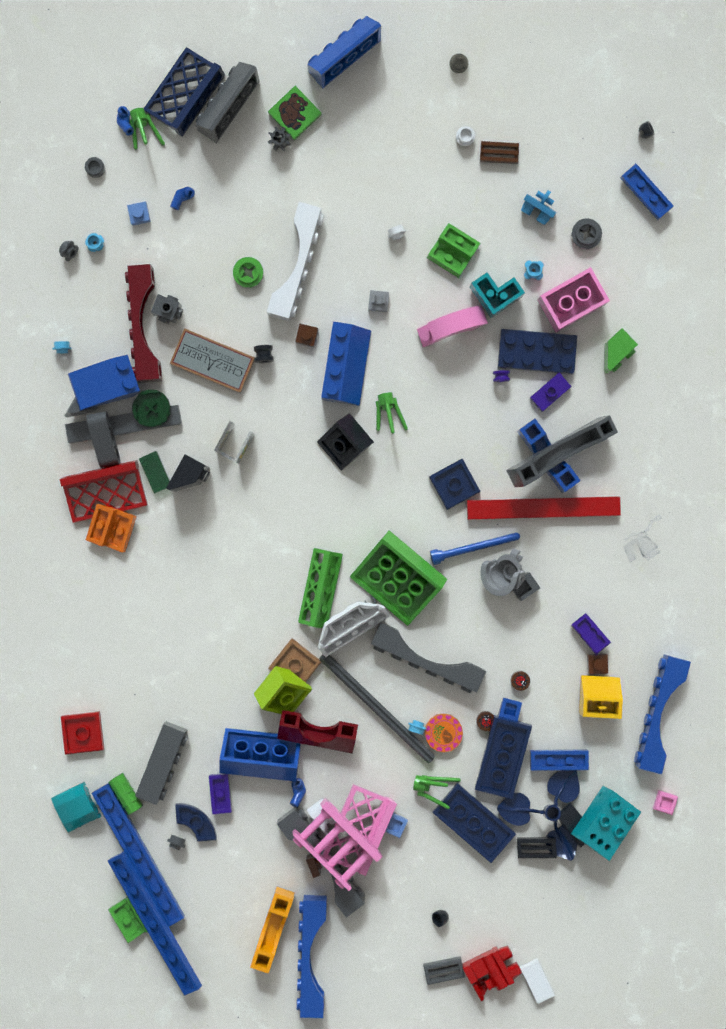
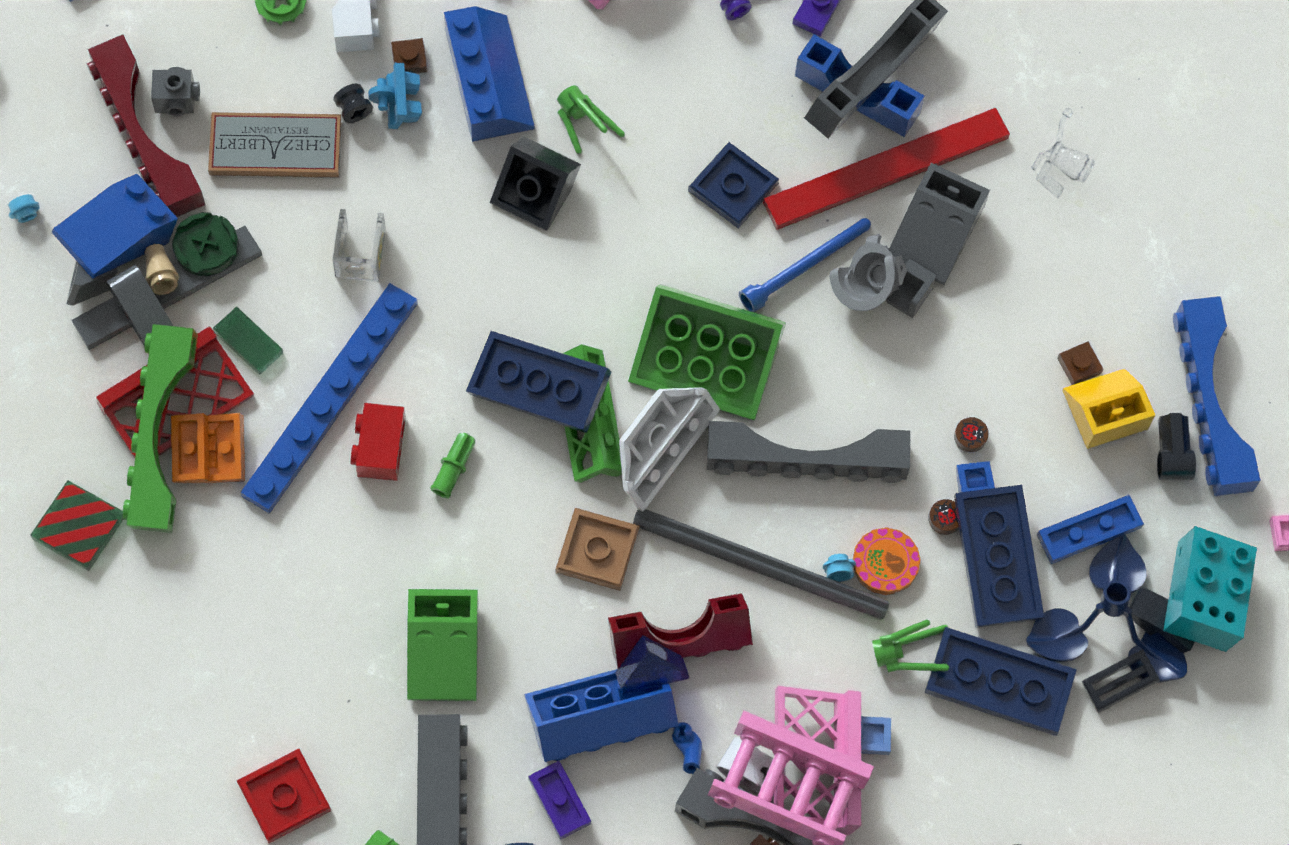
camera: 30 degrees left, 20 degrees down
(28, 543) = (78, 525): none -> tile
(71, 545) = (169, 360): none -> bright green arch
(94, 237) = (16, 35): medium azure plate -> none
(120, 416) = (159, 270): none -> tan cone
(187, 522) = (329, 398): none -> blue plate
(188, 474) = (306, 313): black slope -> none
(191, 688) = (442, 644): none -> bright green slope
(202, 561) = (379, 441): none -> red brick
(237, 588) = (453, 465): none -> bright green axle
(281, 691) = (594, 588): lime slope -> none
(292, 748) = (650, 666): none -> clear blue slope
(293, 351) = (391, 96): none -> dark azure hips
(298, 563) = (538, 381): none -> dark blue plate
(555, 555) = (939, 221): none -> dark grey slope
(590, 634) = (1047, 320): dark purple plate -> none
(623, 739) = (1175, 456): none -> black piece

